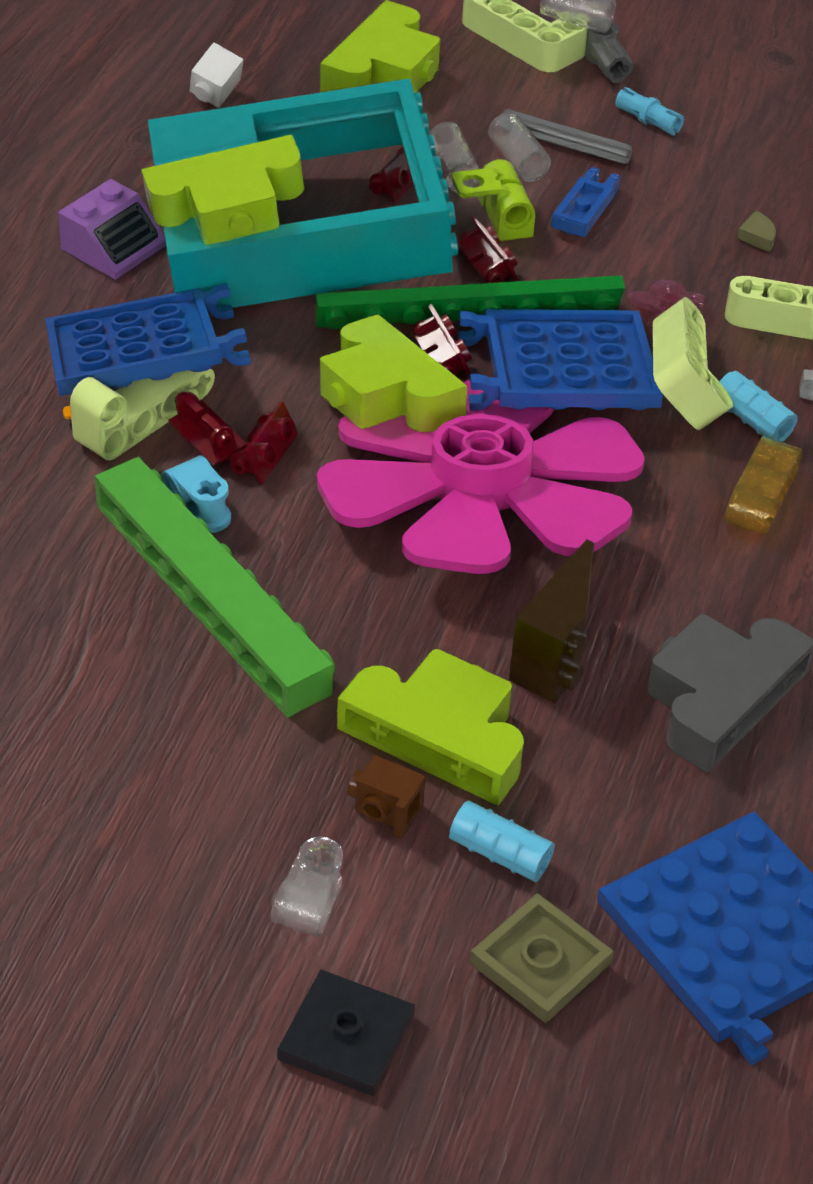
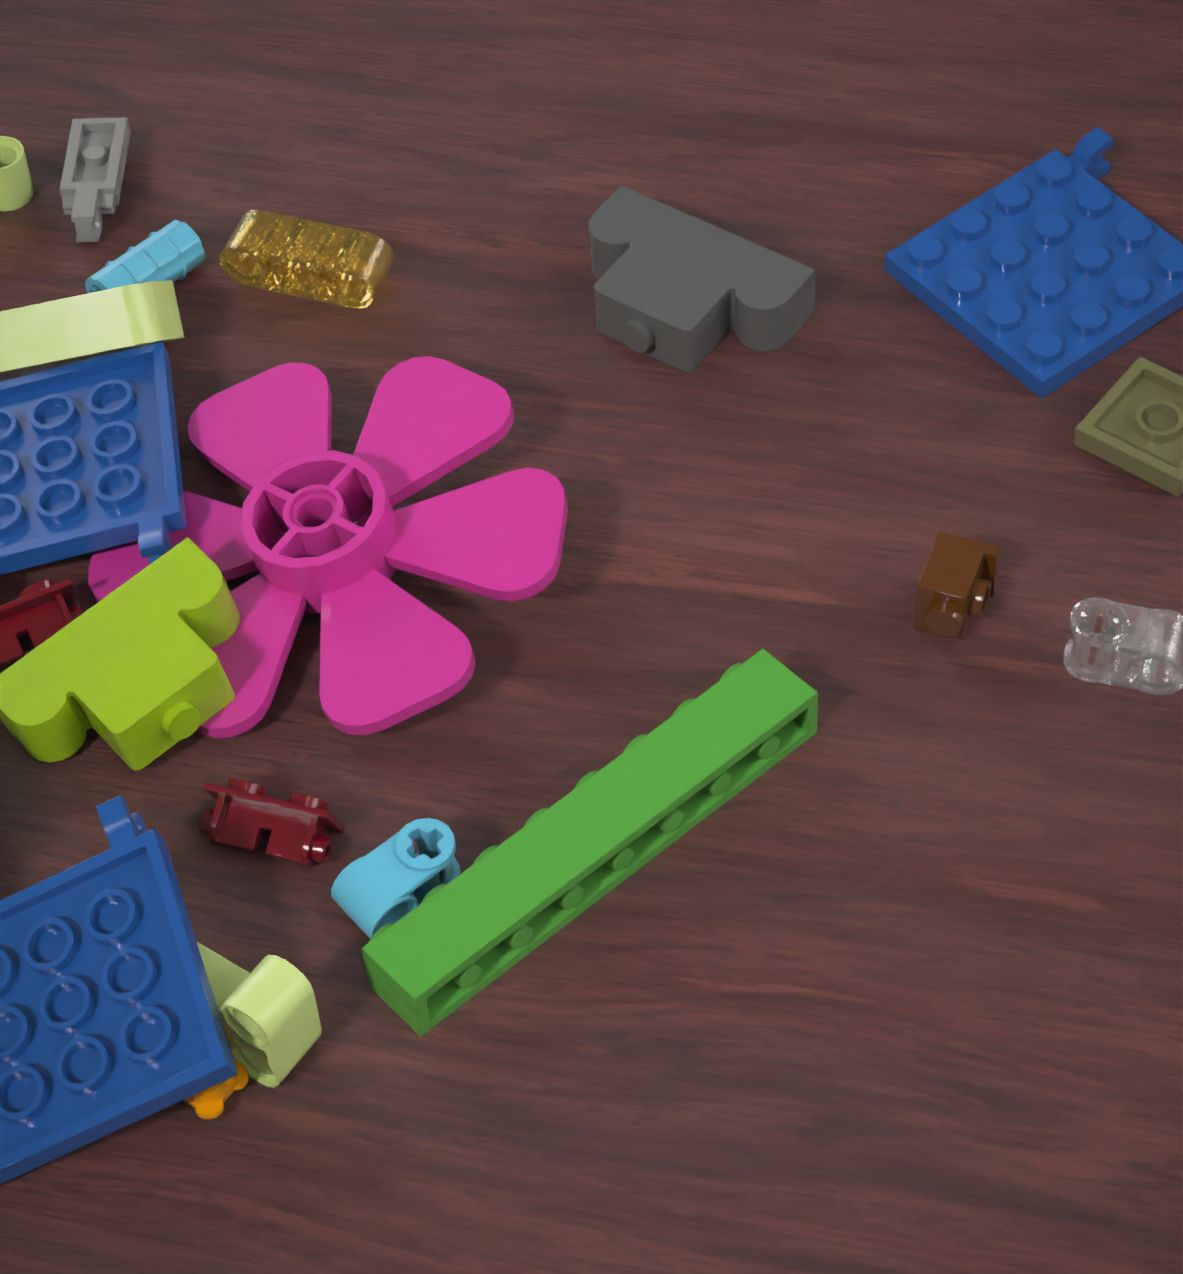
camera: 90 degrees left, 5 degrees up
(205, 429) = (253, 898): dark red hinge -> none
(439, 720) = (812, 546): lime brick -> none
(501, 841) = (996, 473): medium azure axle -> none
(552, 630) = (635, 419): dark brown slope -> none

